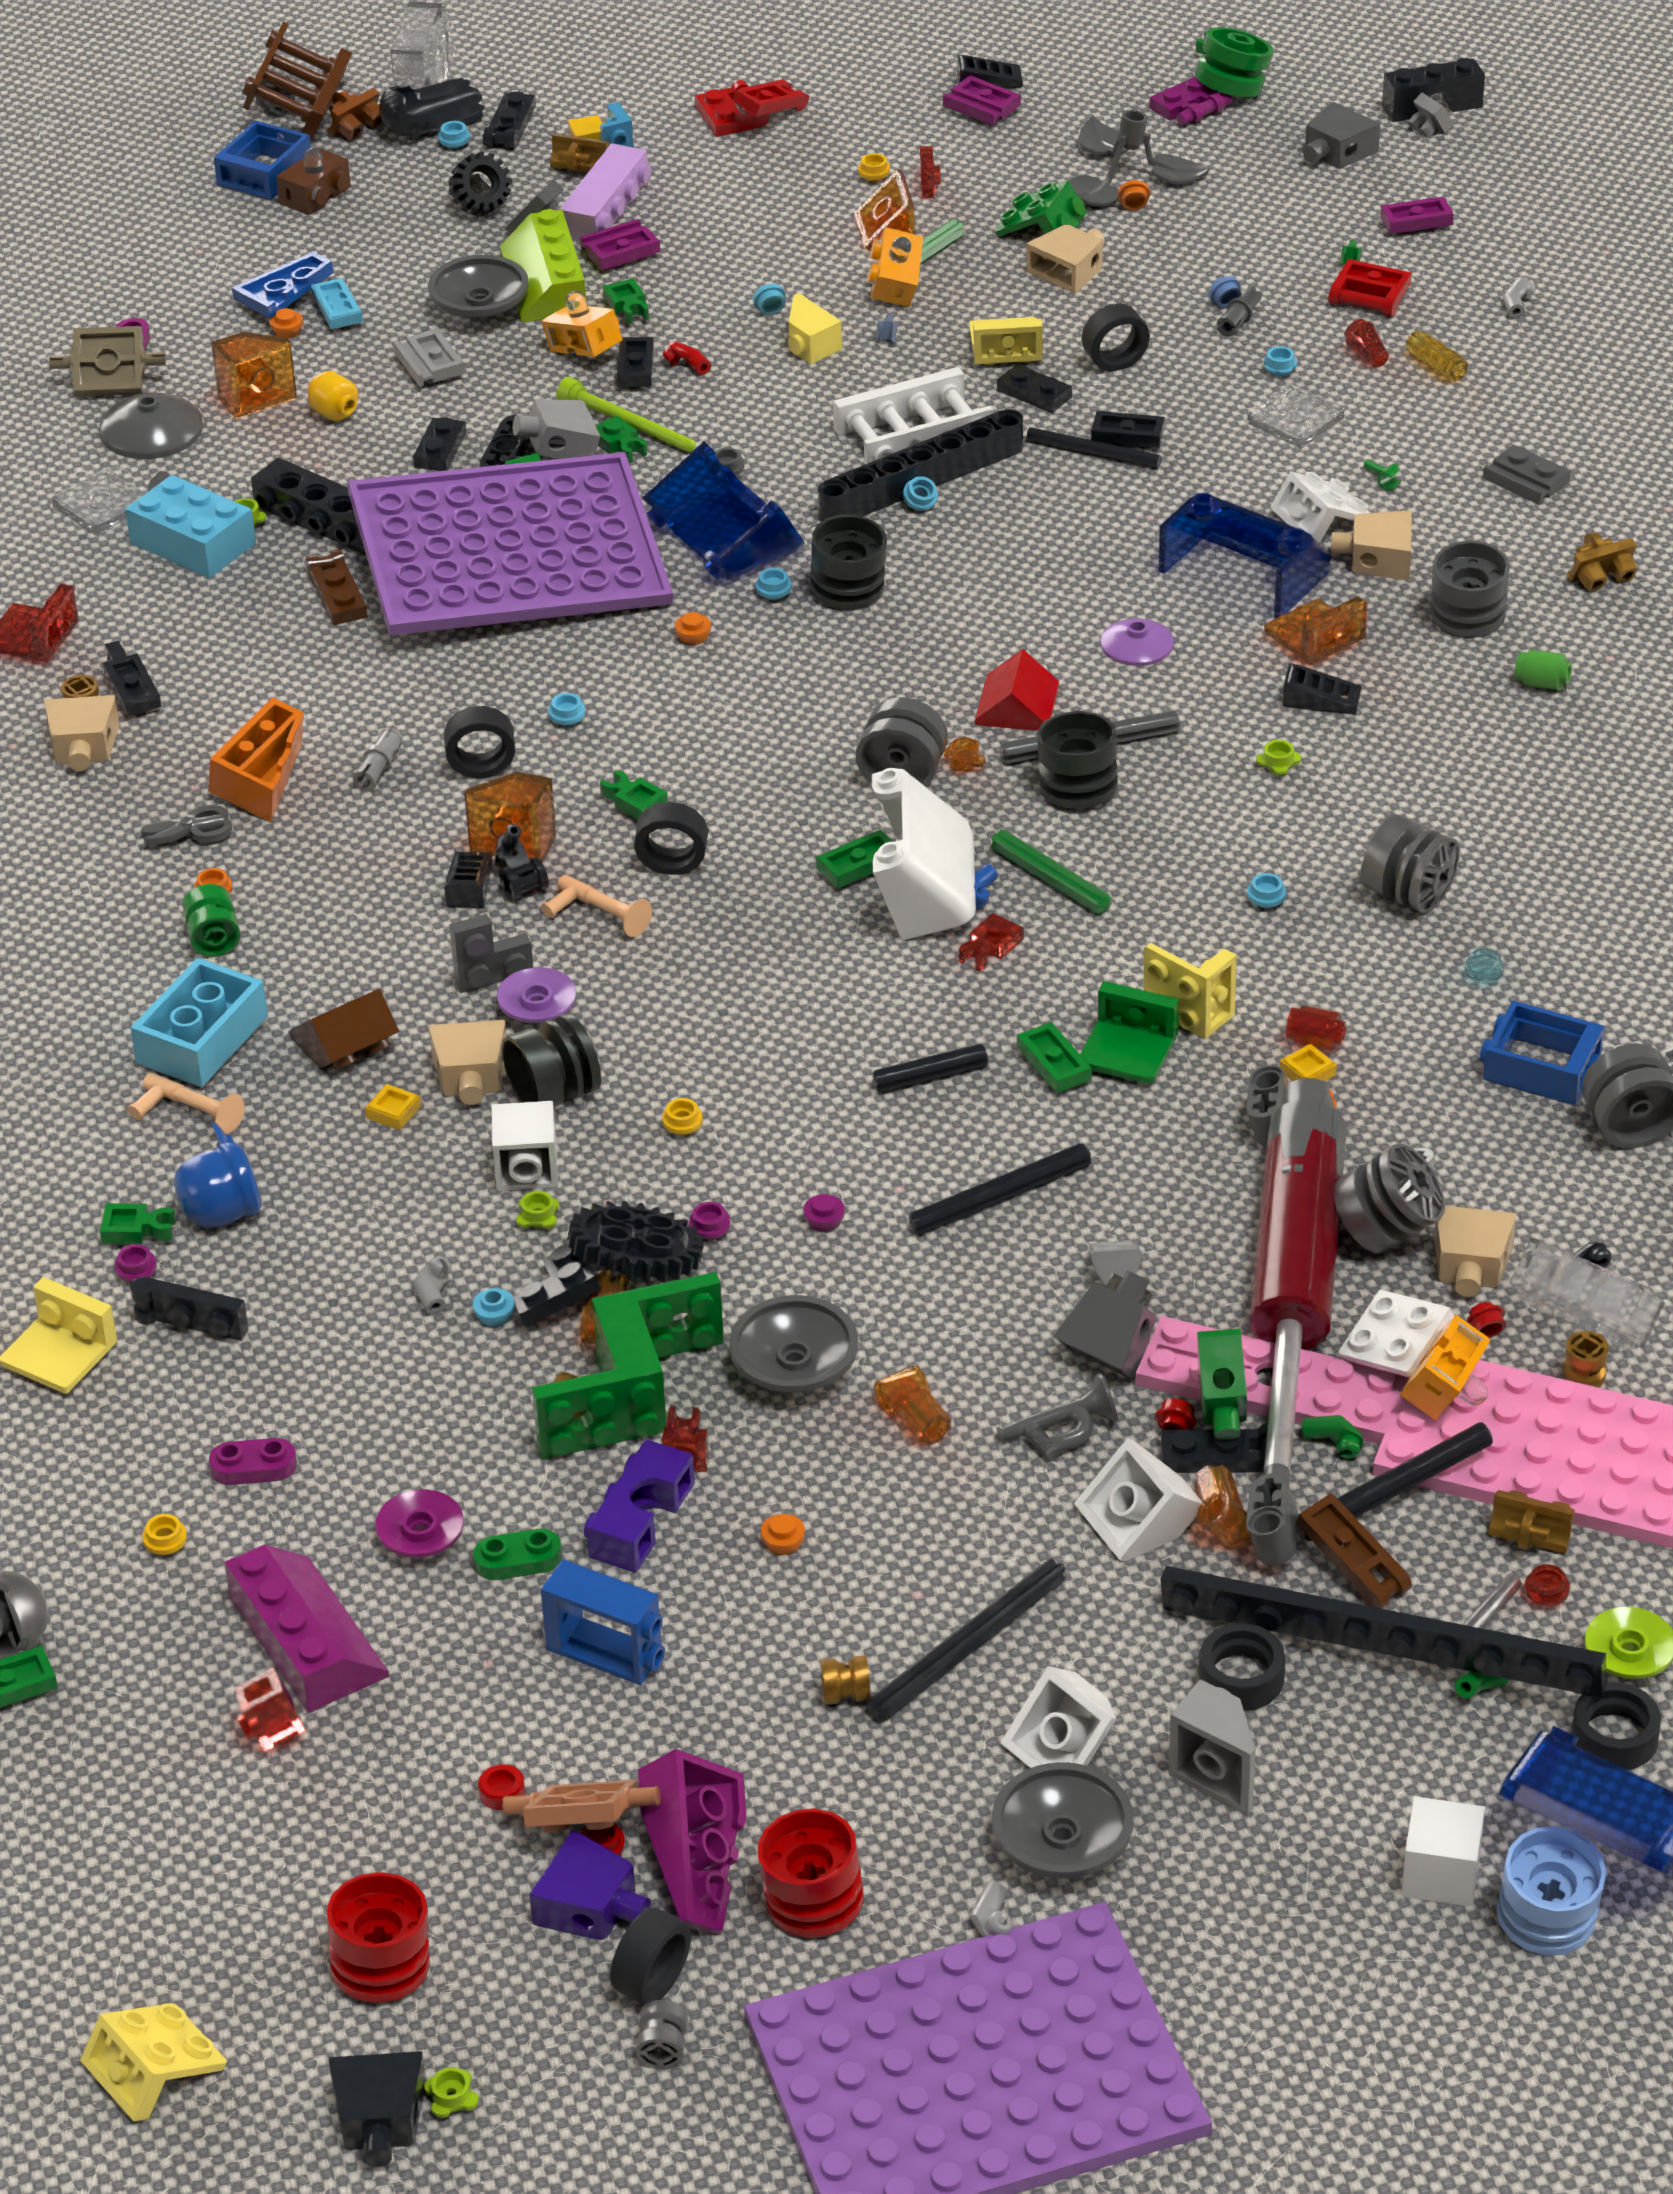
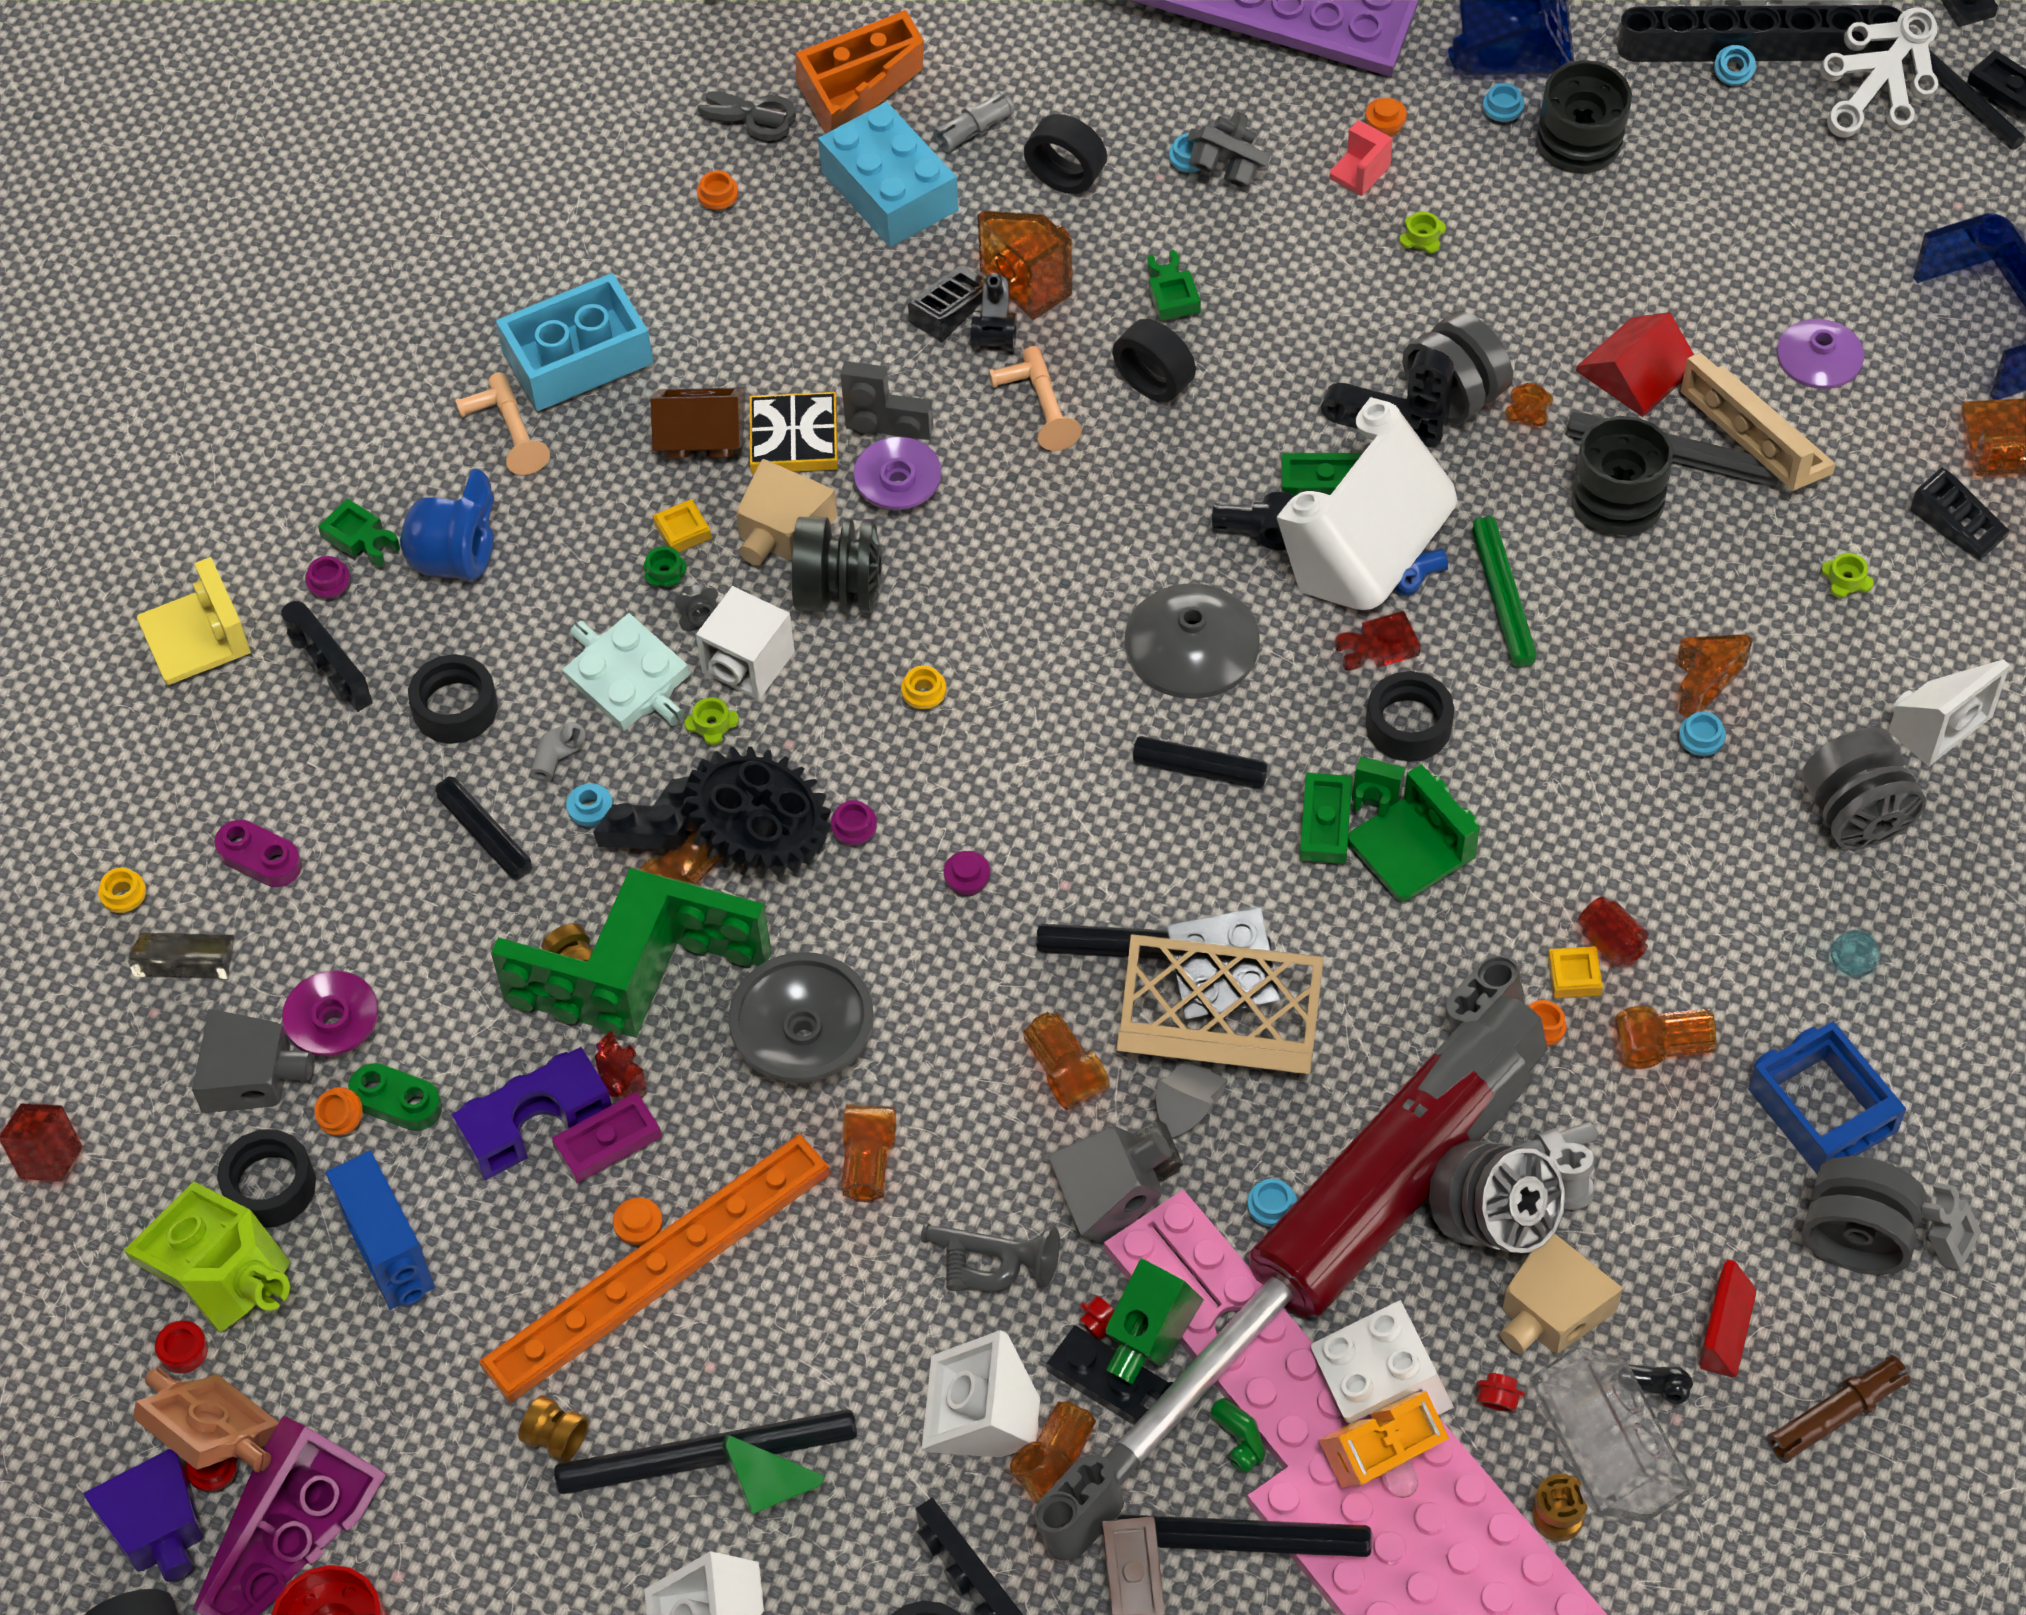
camera: 35 degrees right, 15 degrees up
(211, 920) = (677, 231): green wheel -> none
(281, 1535) = (182, 955): none -> clear smoke slope
(302, 1625) = (148, 1063): magenta slope -> none
(319, 1311) = (445, 671): none -> black tyre
(346, 815) = (888, 174): none -> medium azure brick
(381, 1586) = (245, 1063): none -> dark grey torso
(406, 1135) = (664, 558): none -> green plate
(422, 1359) = (483, 828): none -> black axle
(427, 1002) = (794, 431): none -> tile
(440, 1212) = (627, 672): none -> light aqua plate
(459, 1145) = (693, 598): none -> dark grey plate
(471, 1673) = (256, 1147): none -> black tyre
(481, 1699) = (214, 1255): none -> lime plate
(485, 1581) = (338, 1111): none -> orange plate
(600, 684) = (1211, 144): none -> dark grey hips
(702, 658) = (1365, 159): none -> coral panel
(710, 1493) = (606, 1137): none -> magenta plate
(788, 685) = (1422, 232): none -> lime plate
(820, 1557) = (654, 1268): none -> orange tile
(845, 900) = (1257, 519): none -> black pin
(852, 1002) = (1186, 657): none -> dark grey dish
(893, 756) = (1346, 400): none -> black beam
(1016, 1288) = (1069, 1069): none -> clear orange piece
(1027, 1620) = (765, 1477): none -> green slope
(1038, 416) = (1885, 66): none -> white plant
(1056, 990) = (1414, 687): none -> black tyre
(1071, 1164) = (1236, 929): none -> hinge
(1074, 1017) = (1377, 784): none -> green tile
(1104, 1222) = (1212, 1045): none -> tan fence
(1136, 692) = (1754, 424): none -> tan fence
(1203, 992) = (1515, 837): light yellow bracket -> none
(1229, 1293) = (1270, 1201): none -> medium azure plate
(1235, 847) = (1710, 667): none -> clear orange slope
(1397, 1075) = (1652, 1036): none -> clear orange piece
(1423, 789) = (1947, 710): none -> white slope
(1590, 1208) = (1728, 1322): none -> red slope

